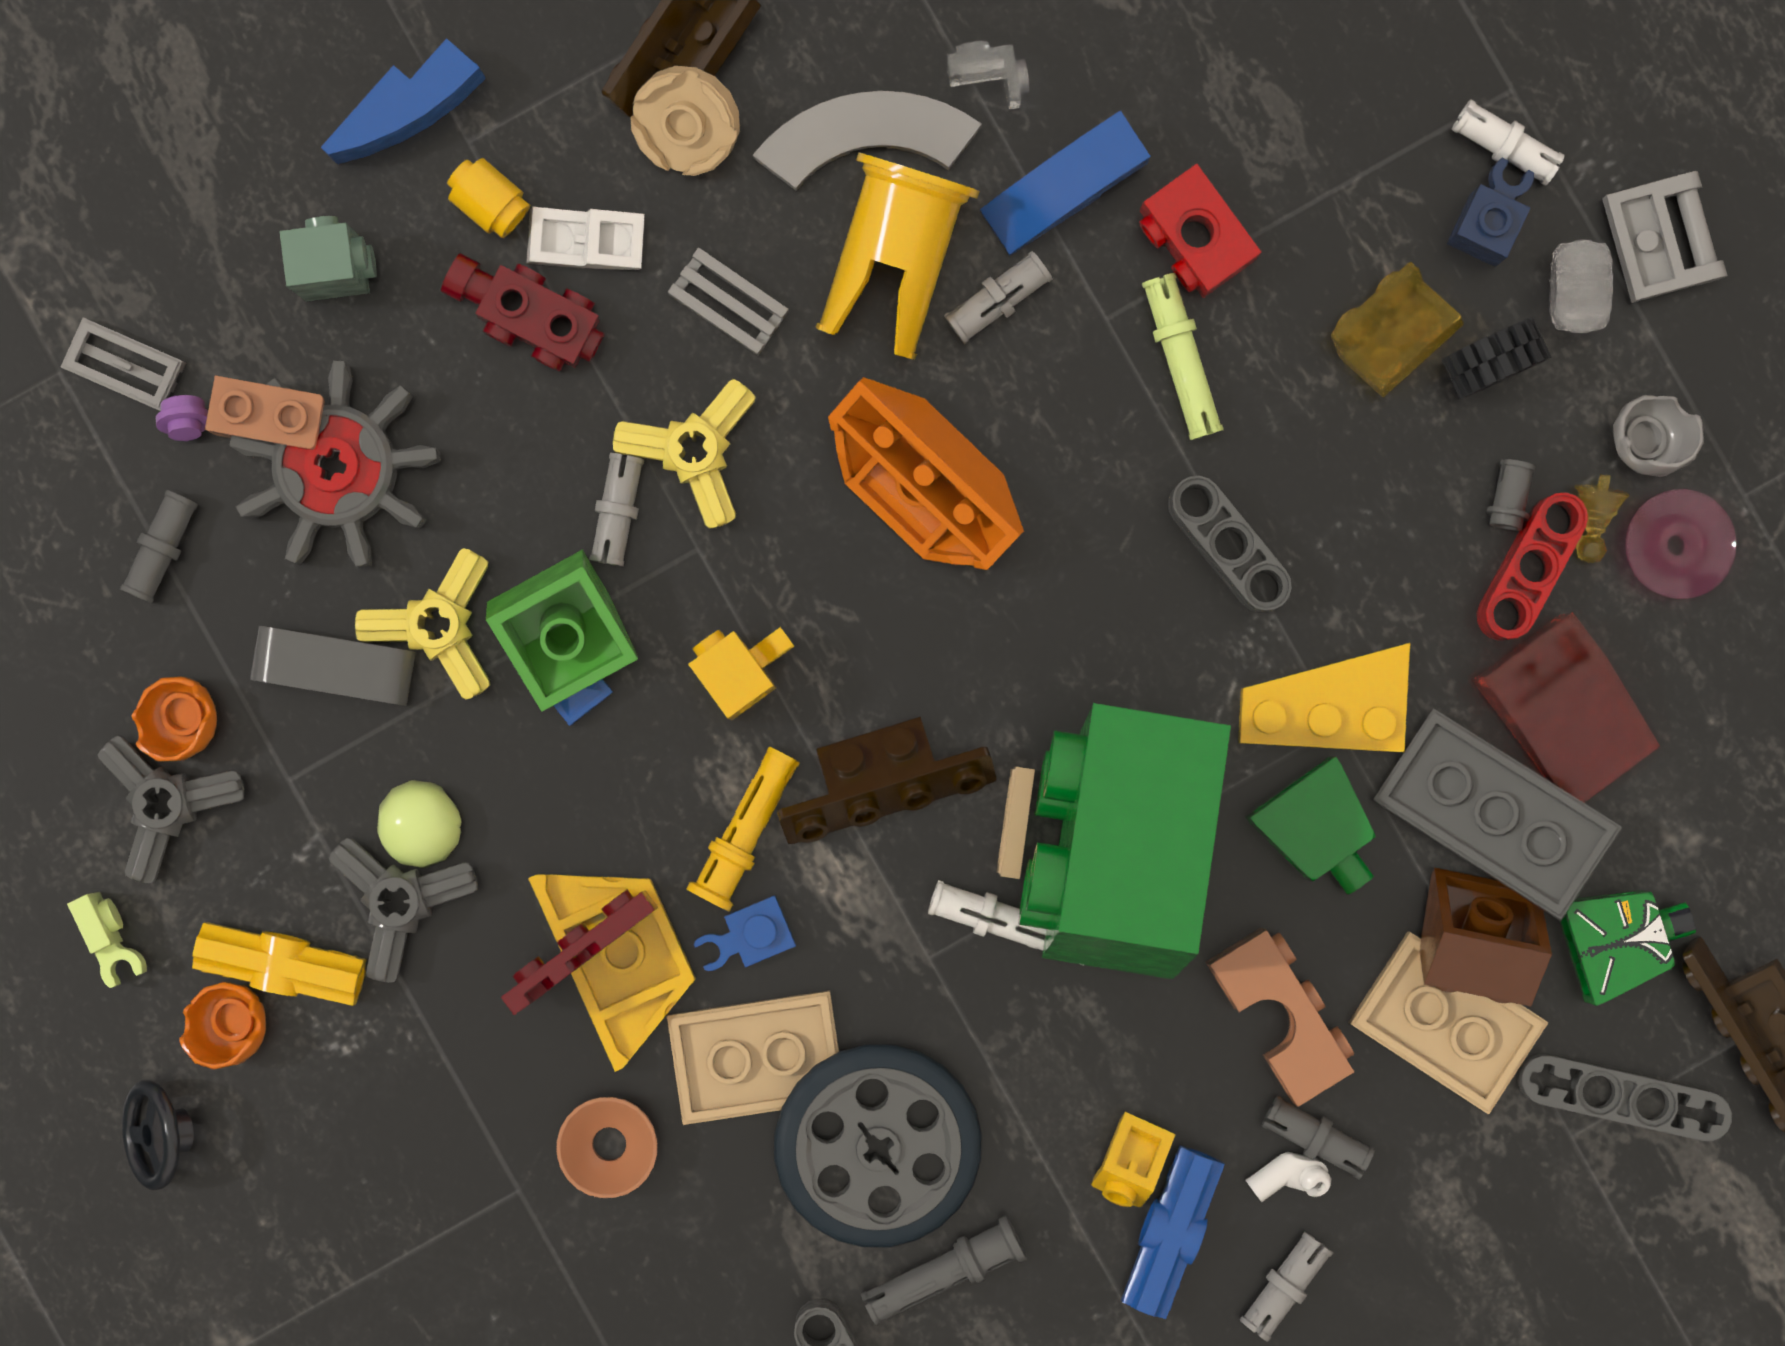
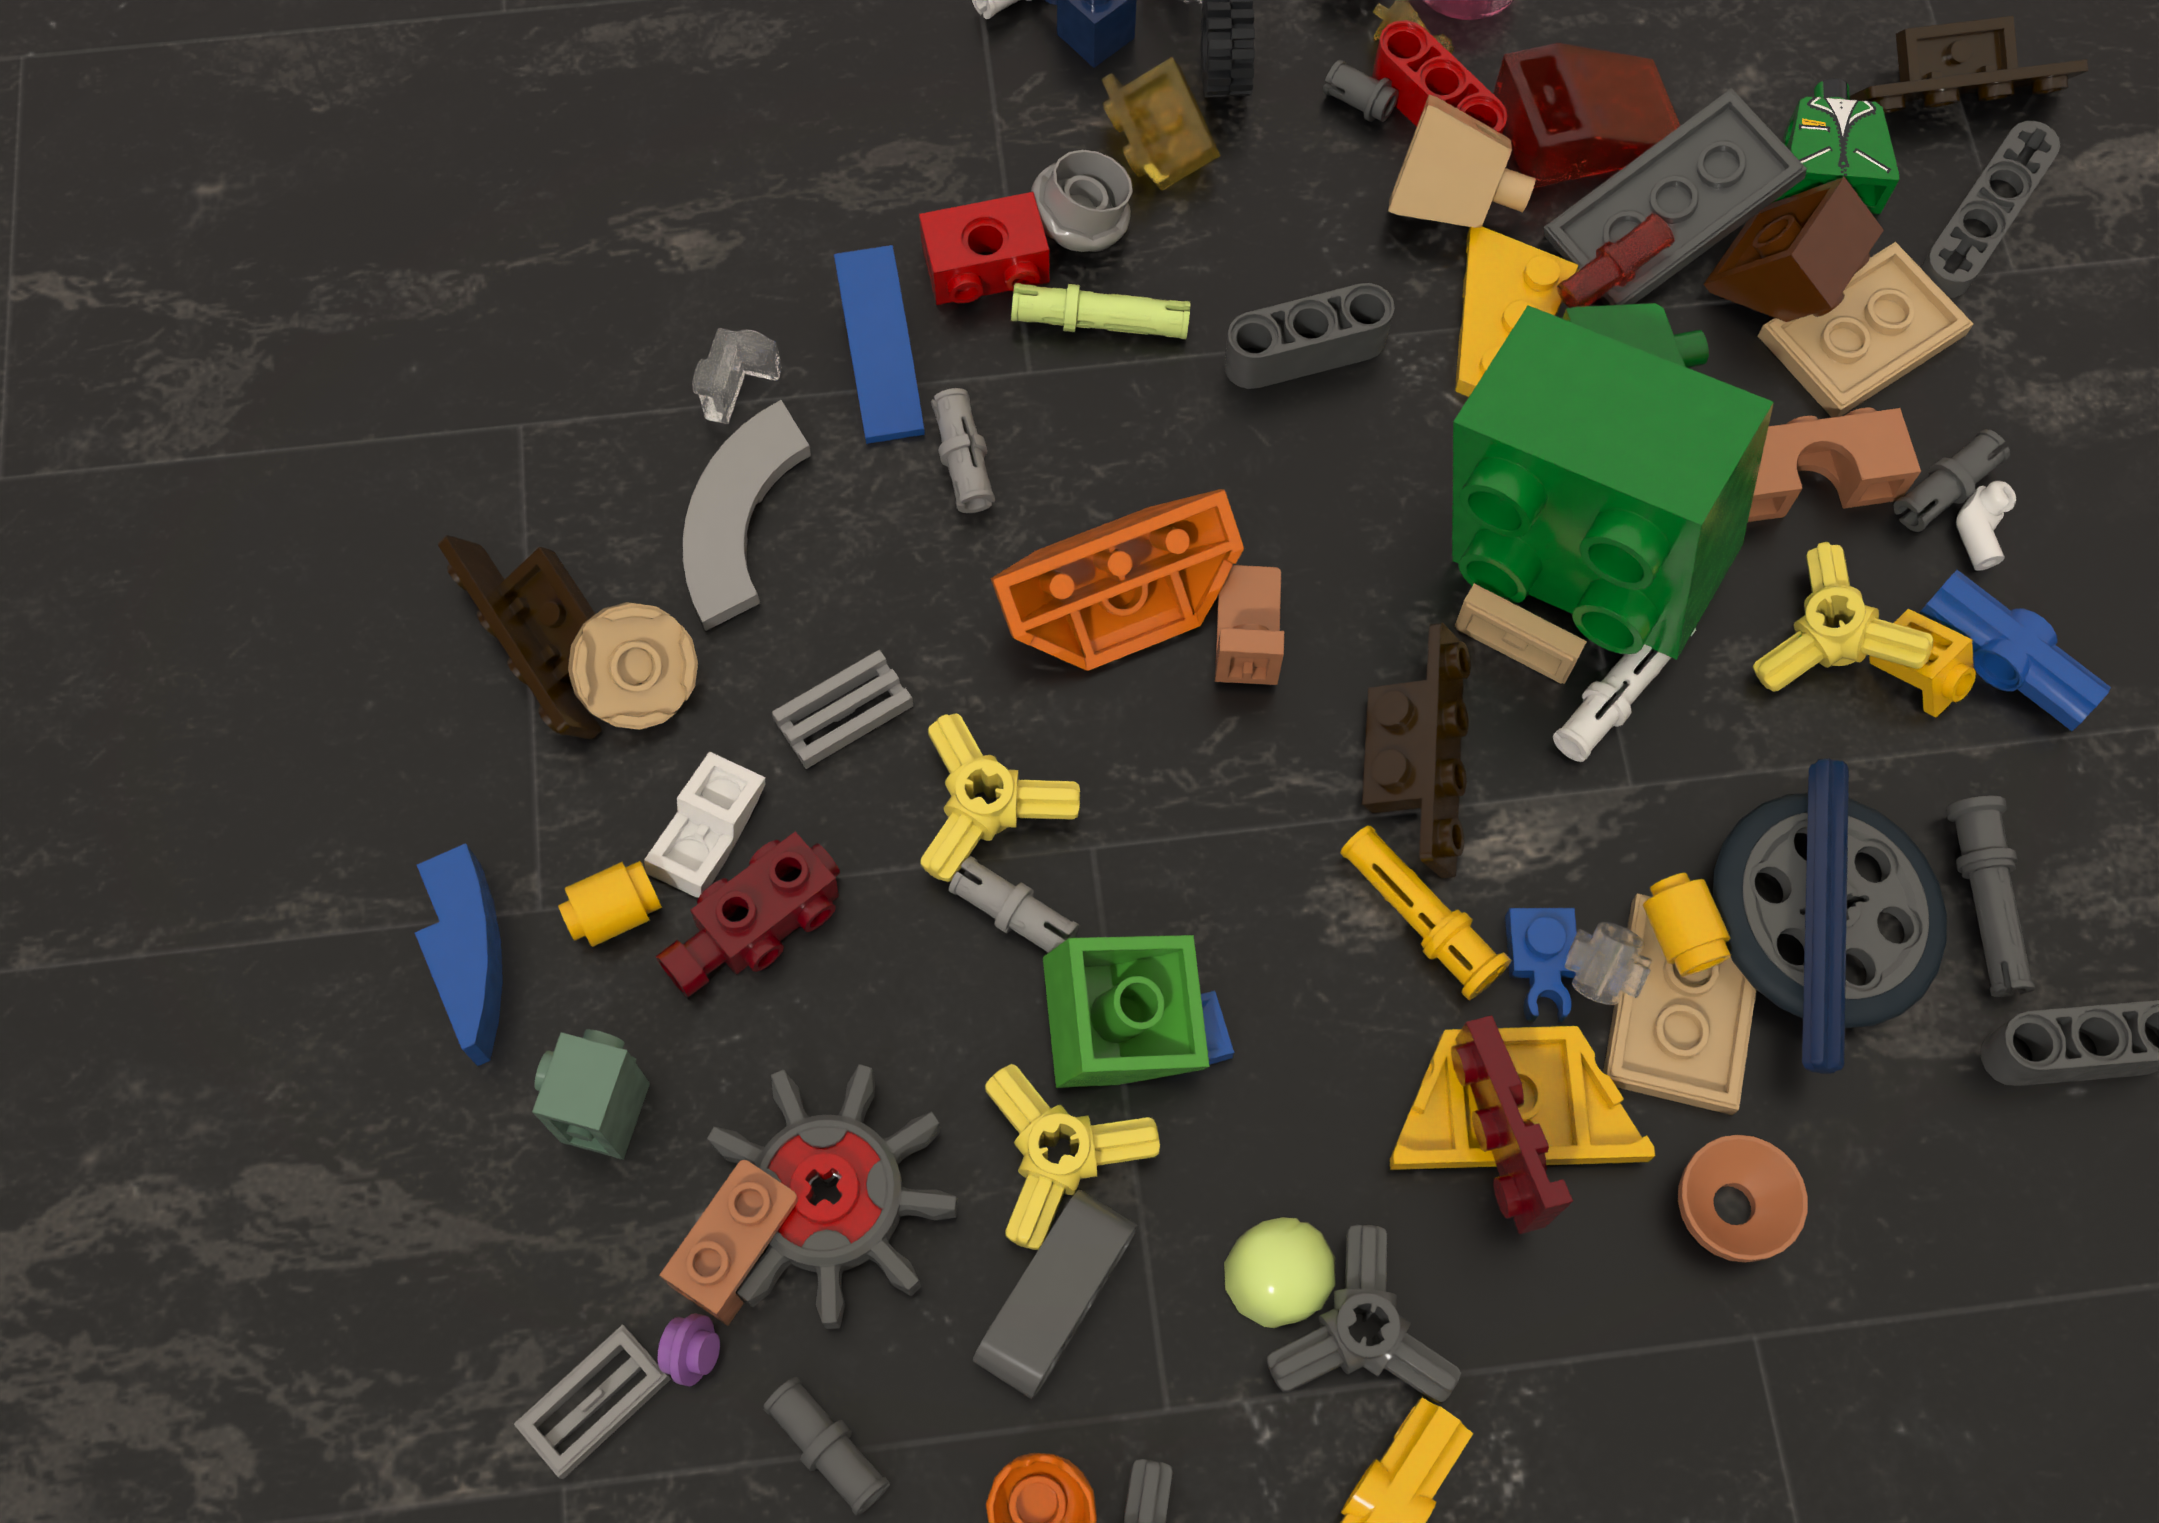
camera: 65 degrees left, 20 degrees down
(734, 672) = (1250, 836): yellow brick -> none
(749, 986) = (1608, 963): none -> clear gear
(807, 1037) = (1687, 924): none -> yellow brick
(860, 1142) = (1826, 917): none -> dark blue axle
(904, 223) = (853, 498): yellow piece -> none
(936, 599) = (1249, 626): none -> nougat bracket
(1151, 1071) = (1859, 634): none -> light yellow bush
(1277, 296) = (1084, 201): none -> light grey piece
(1286, 1286) = (2102, 568): light grey pin -> none
(1404, 784) = (1616, 263): none -> clear red pin
(1443, 612) = (1456, 170): none -> tan torso

